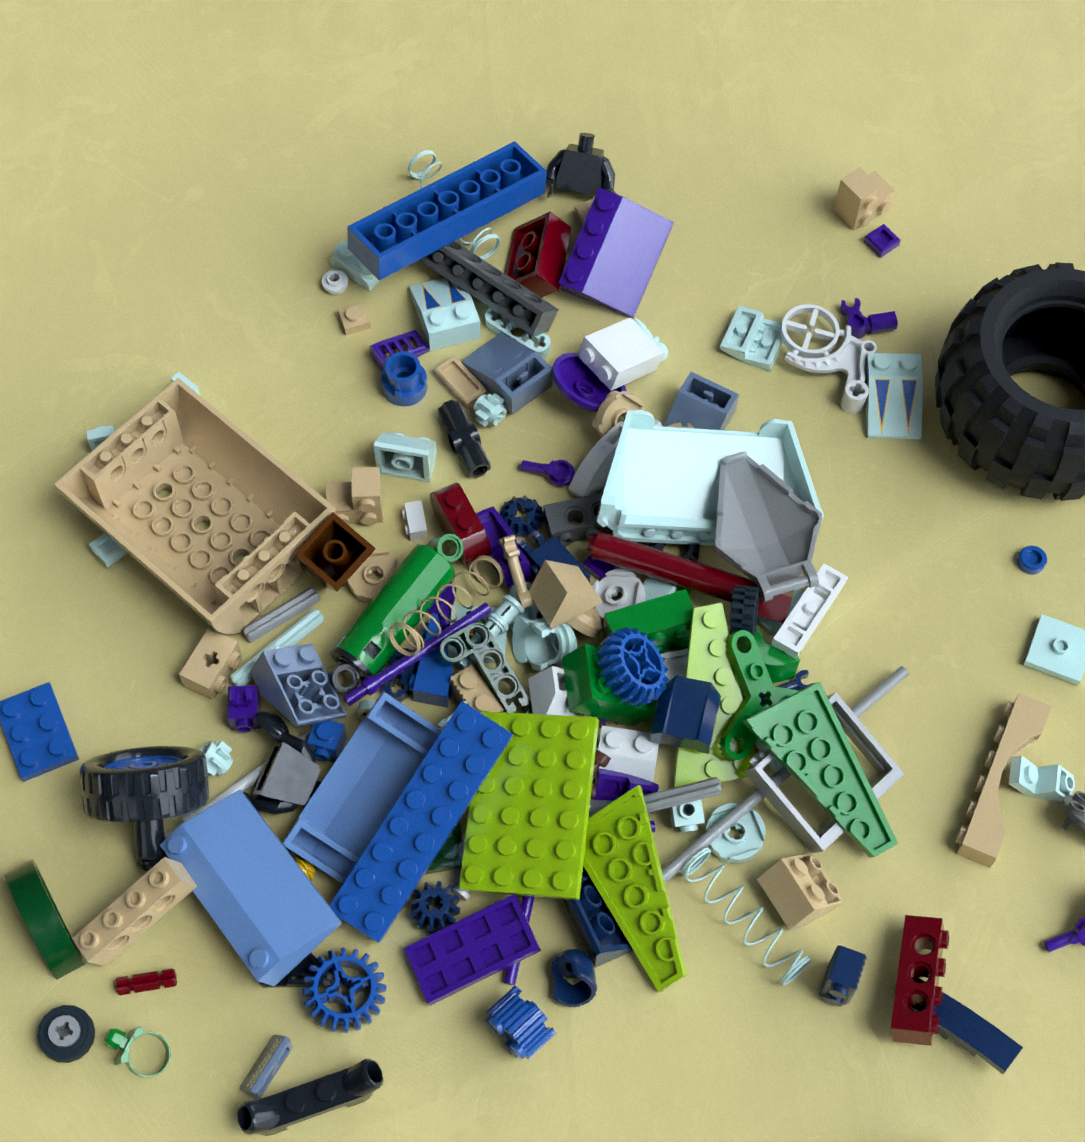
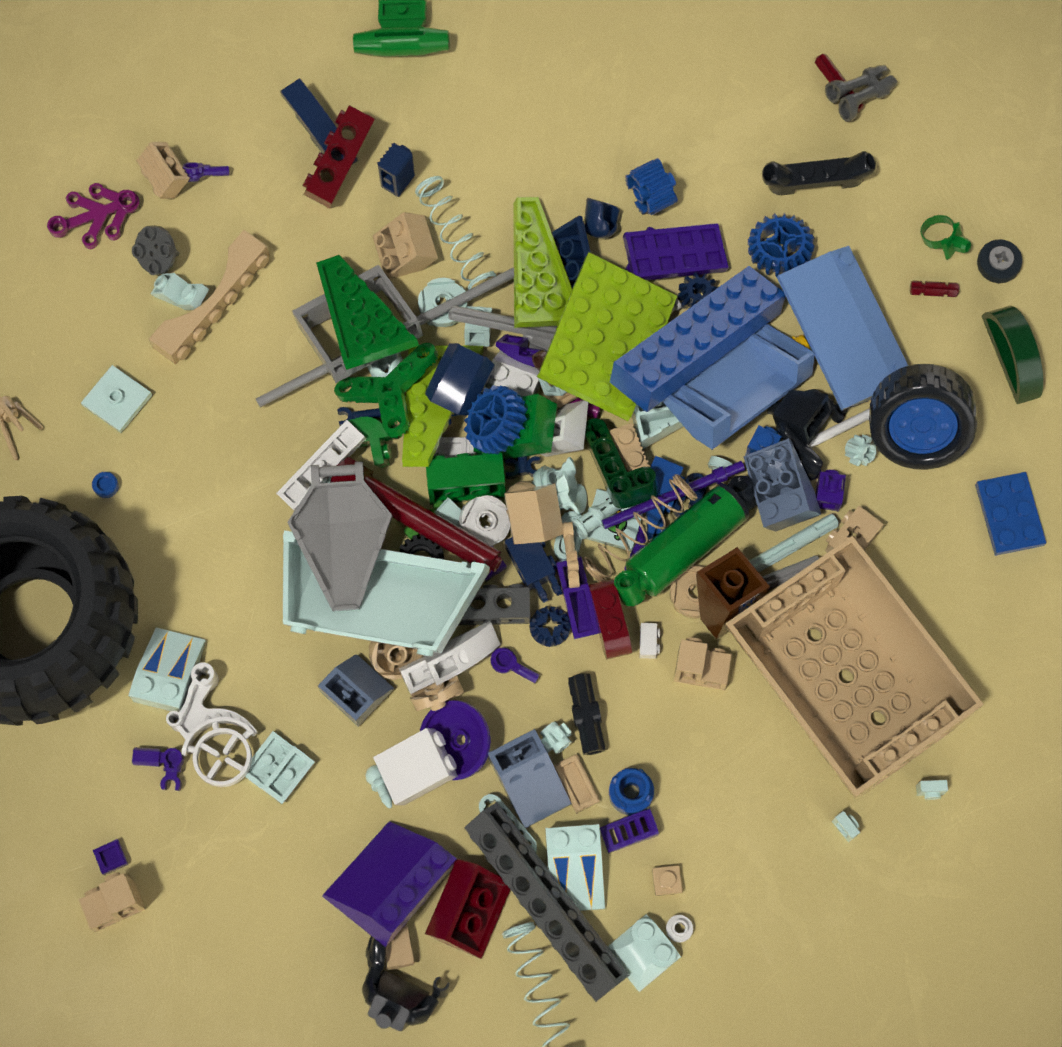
camera: 165 degrees left, 10 degrees up
(134, 912) = (939, 326): tan brick -> none
(266, 1066) = (848, 207): sand blue slope -> none
(405, 456) = (645, 702): light aqua slope -> none
(446, 210) = (551, 949): blue brick -> none
(744, 609) = (382, 458): black bush -> none

